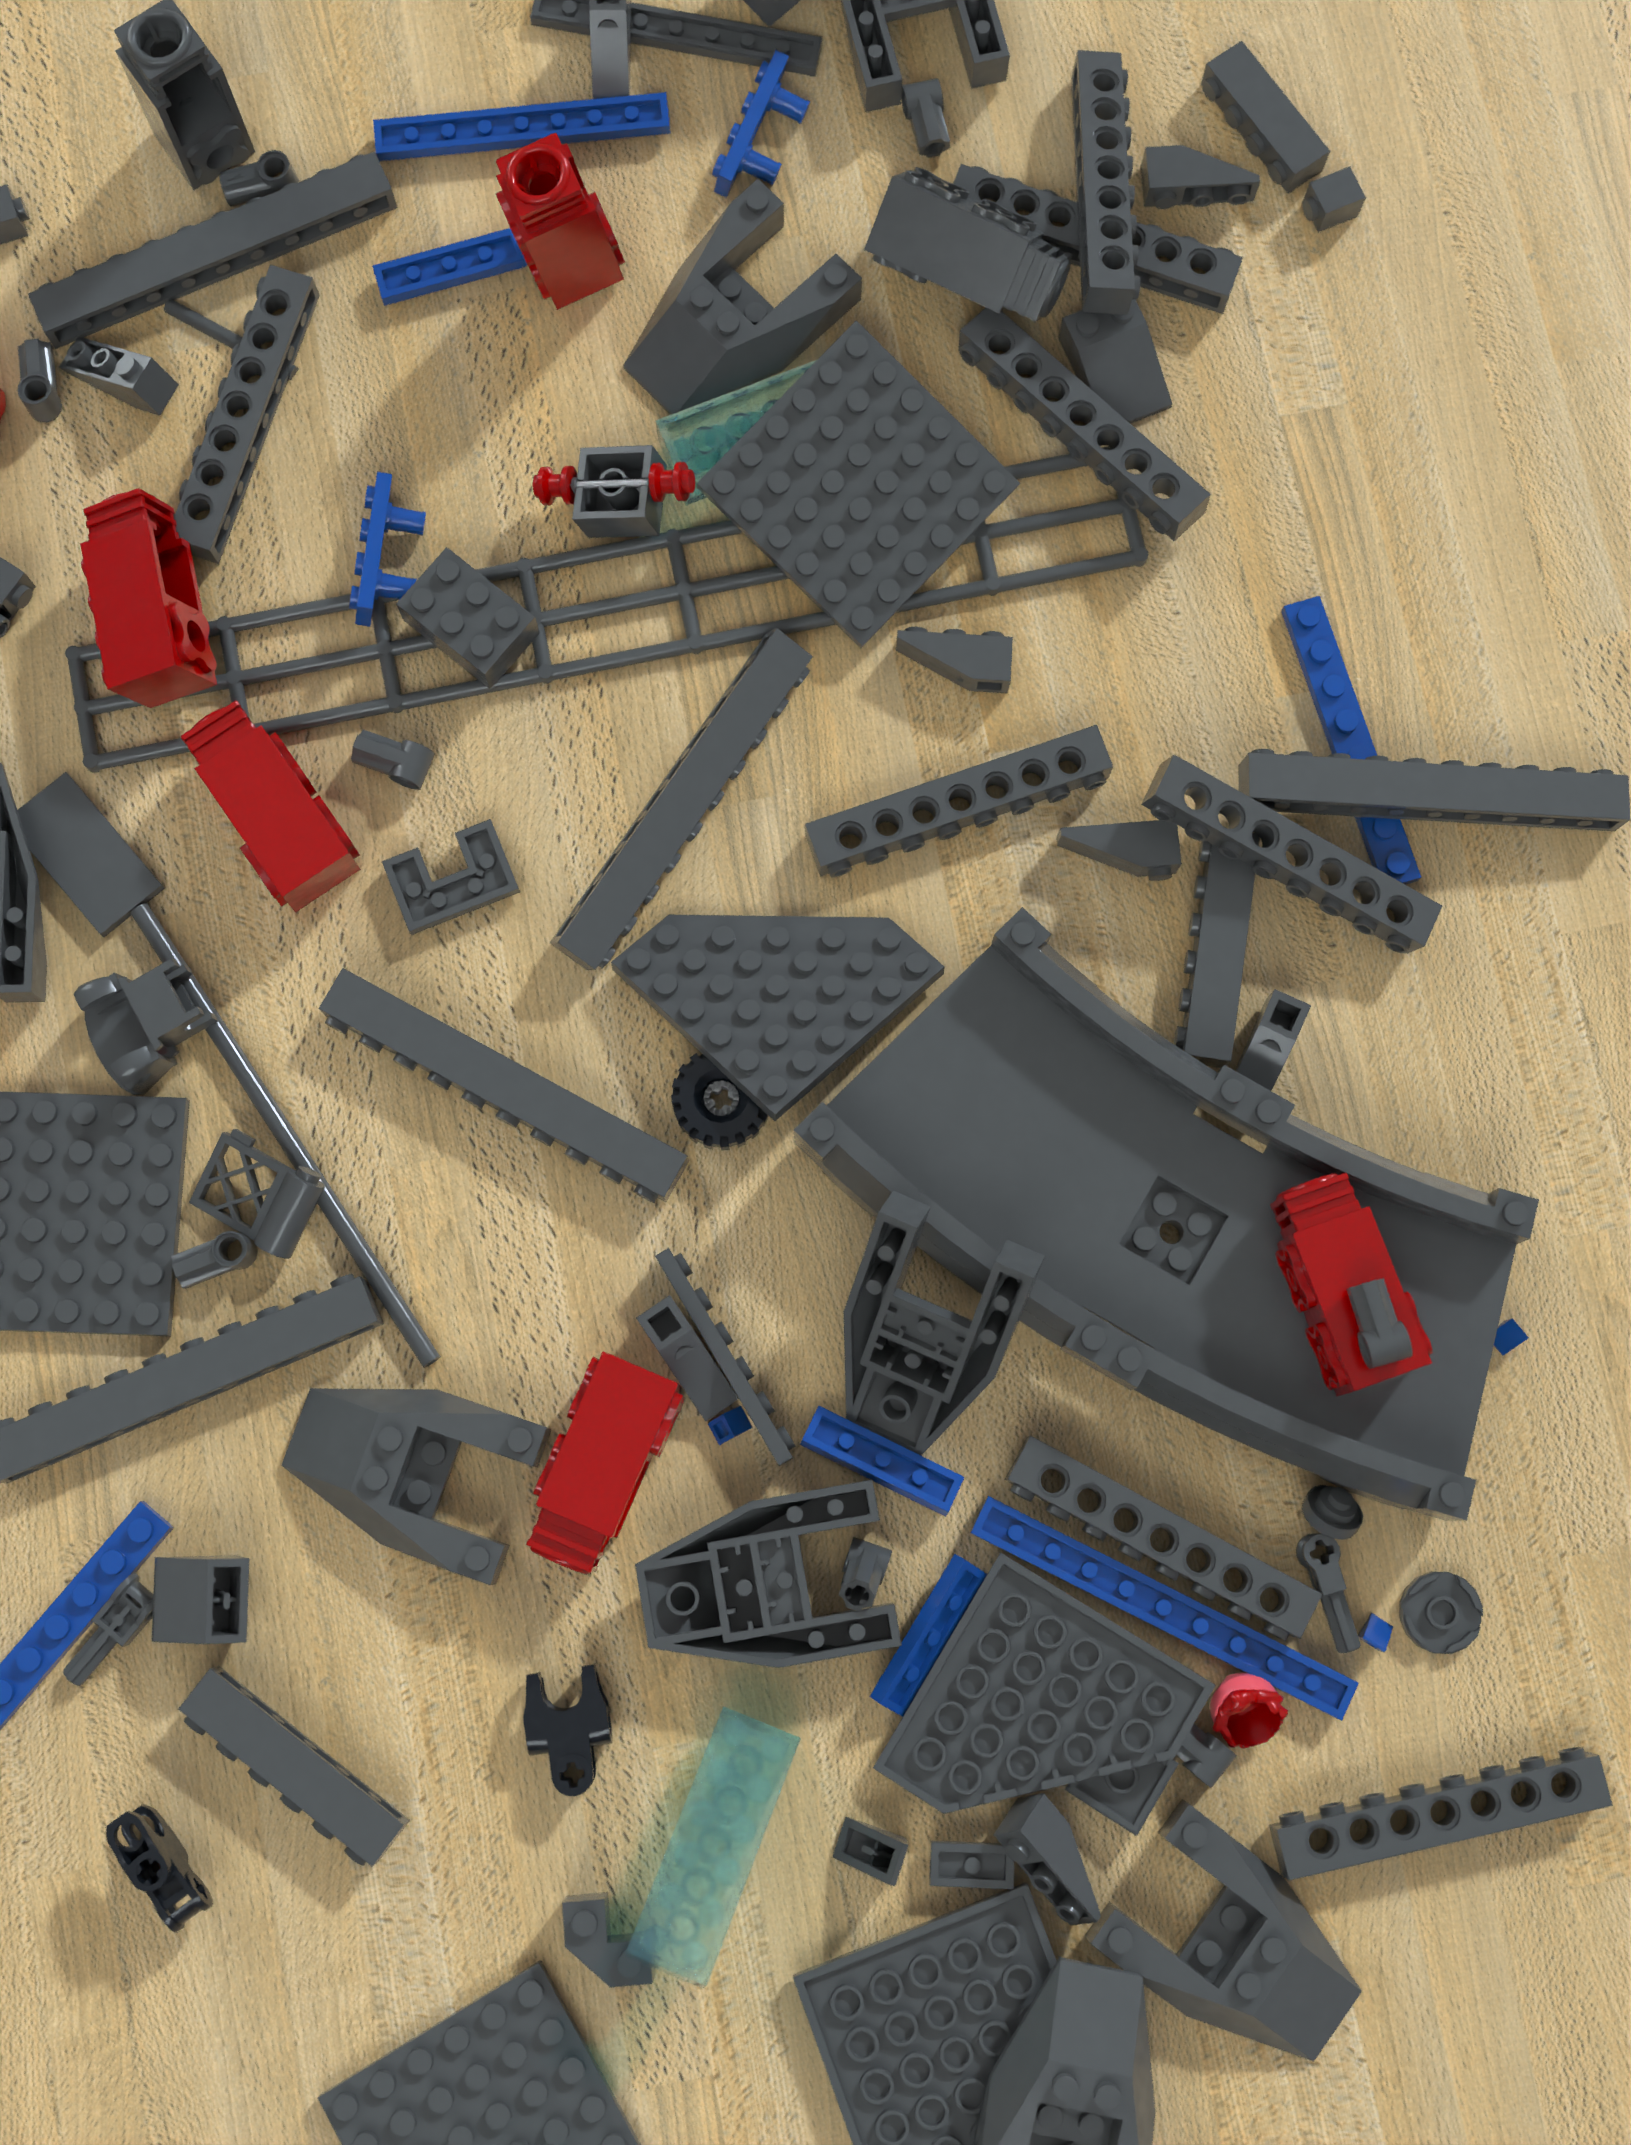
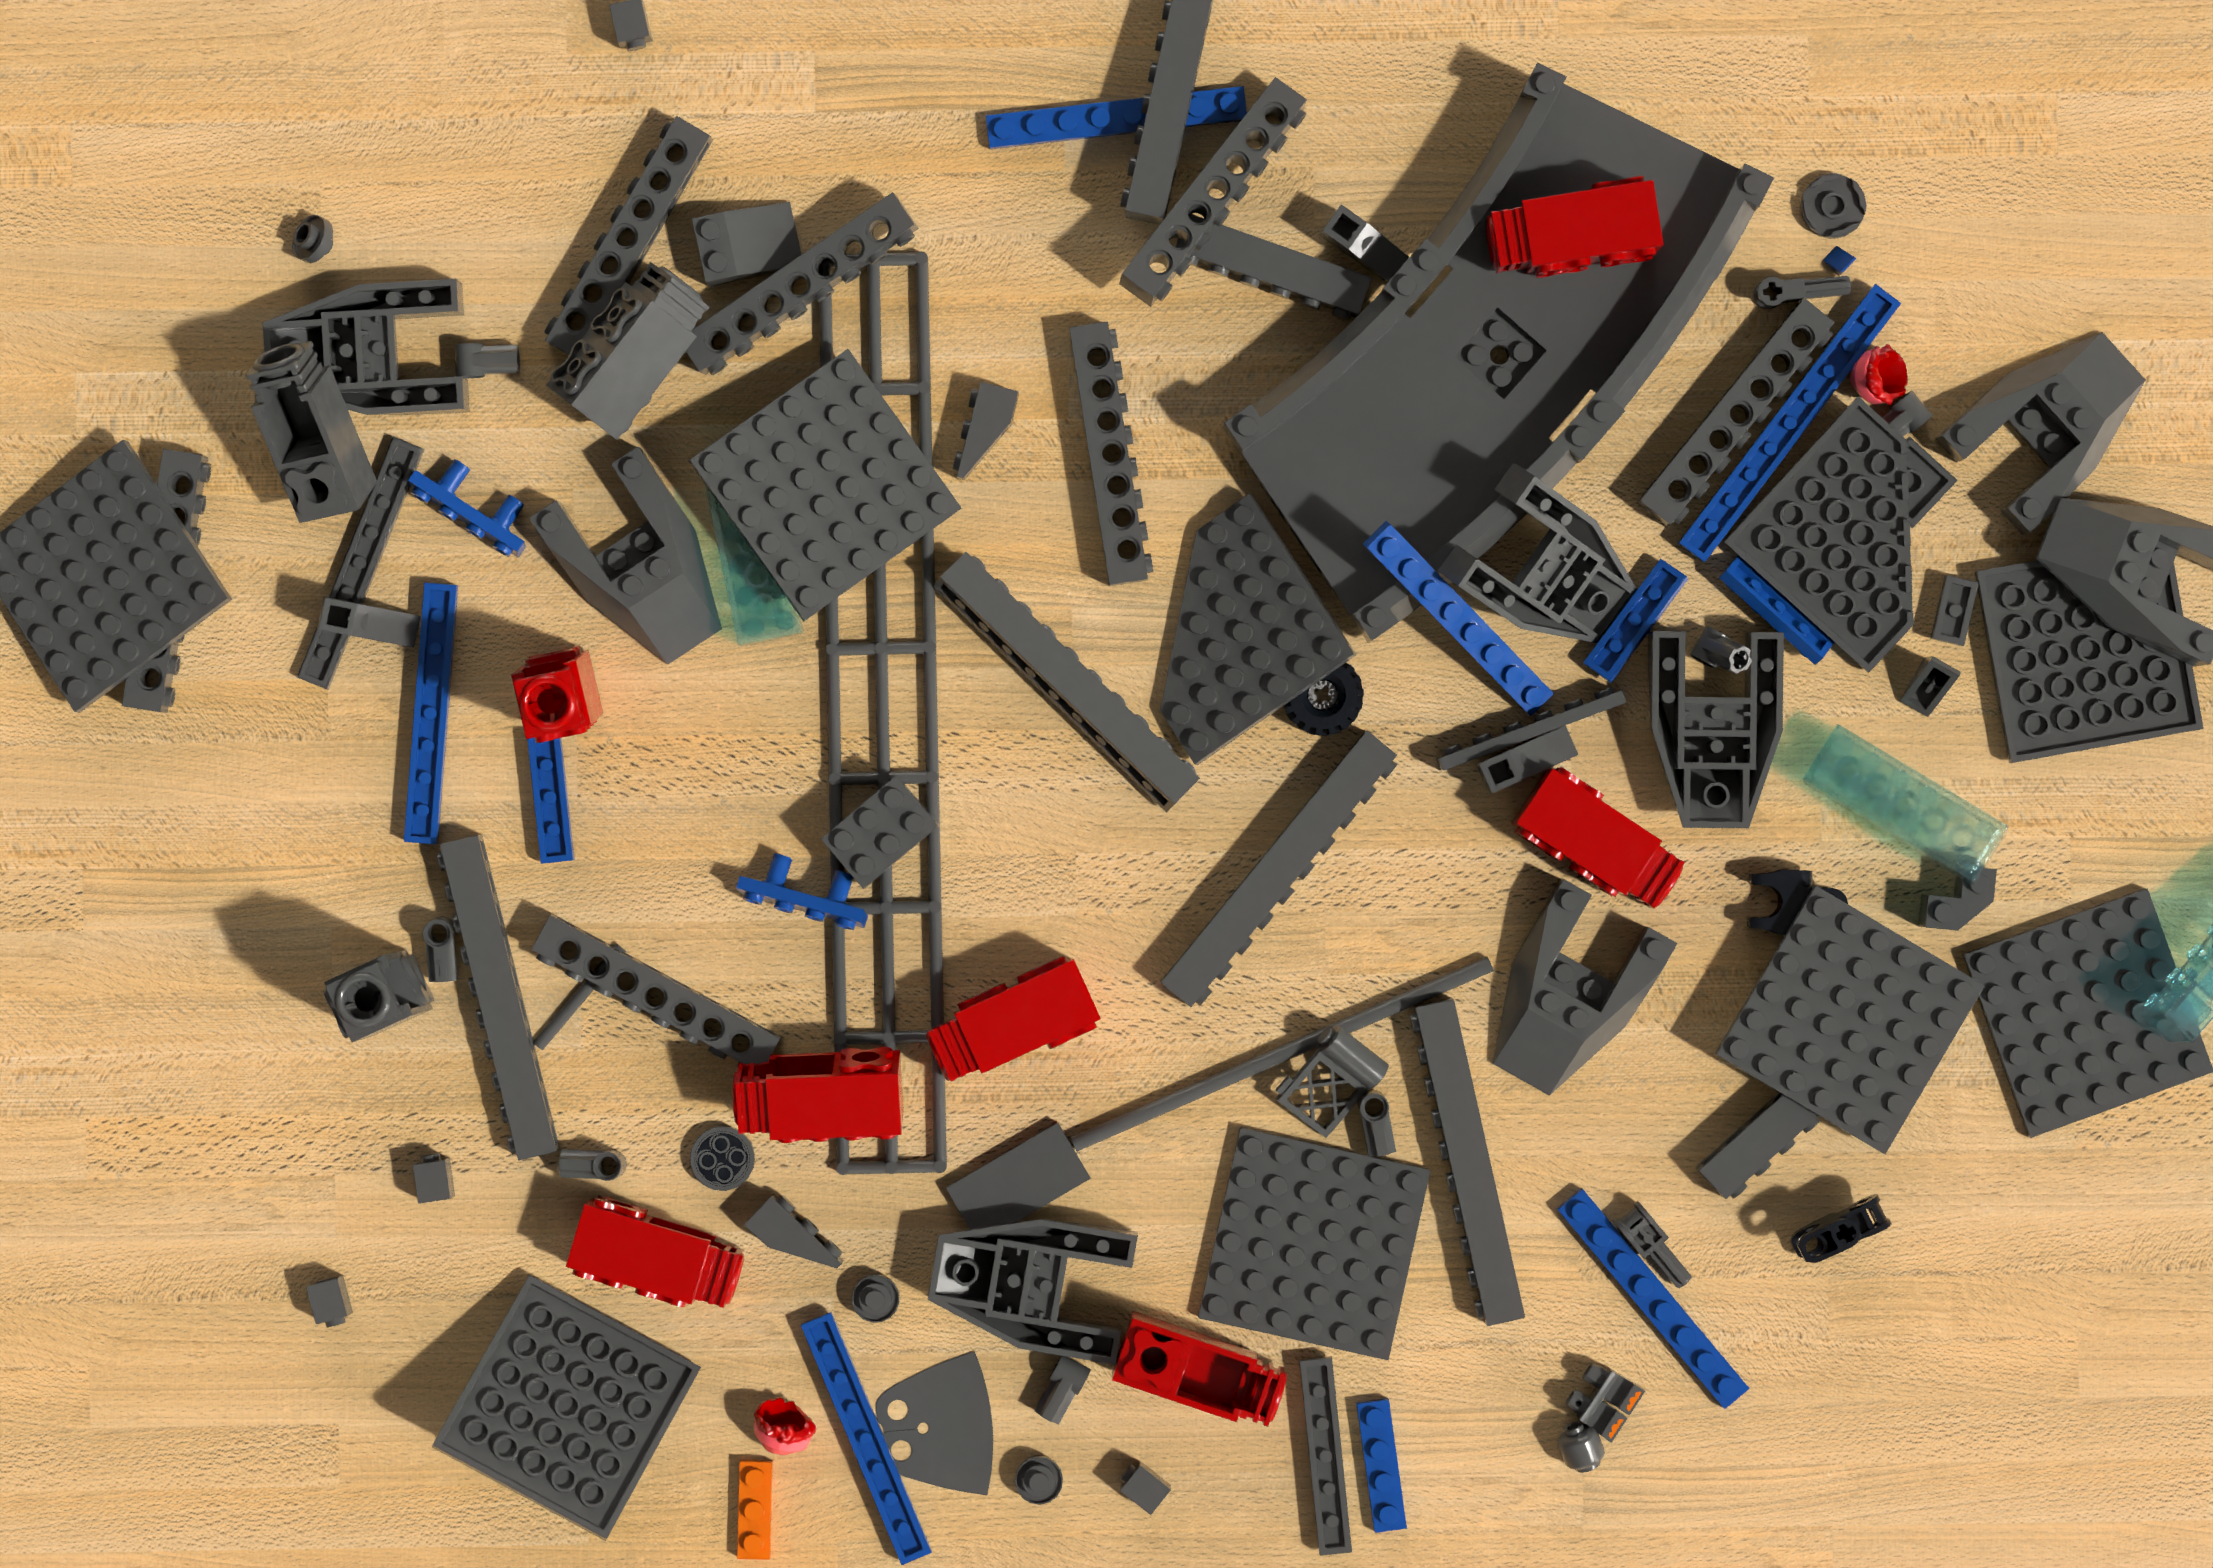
camera: 75 degrees left, 10 degrees up
(59, 520) = (722, 1158): none -> tile
(121, 373) = (598, 1095): dark grey slope -> none
(140, 1023) = (1176, 1155): dark grey piece -> none
(200, 1599) = (1645, 1169): dark grey slope -> none
(402, 762) = (987, 911): dark grey piece -> none
(428, 1827) = (1849, 1019): none -> dark grey plate
(435, 902) = (1114, 902): dark grey plate -> none
(616, 489) = (790, 688): dark grey brick -> none
(729, 1425) = (1583, 736): blue piece -> none
(842, 1232) = (1458, 618): none -> blue plate
(1047, 1852) = (1954, 551): dark grey slope -> none
(1103, 183) = (695, 247): dark grey brick -> none
(1132, 847) = (1175, 320): dark grey slope -> none
(1193, 178) = (585, 148): dark grey slope -> none
(1264, 117) = (542, 67): dark grey brick -> none
(1332, 1511) = (1742, 275): dark grey plate -> none
(1380, 1335) = (1625, 215): dark grey piece -> none
(1509, 1336) = (1630, 103): blue piece -> none
(1584, 1792) = (1991, 130): dark grey brick -> none

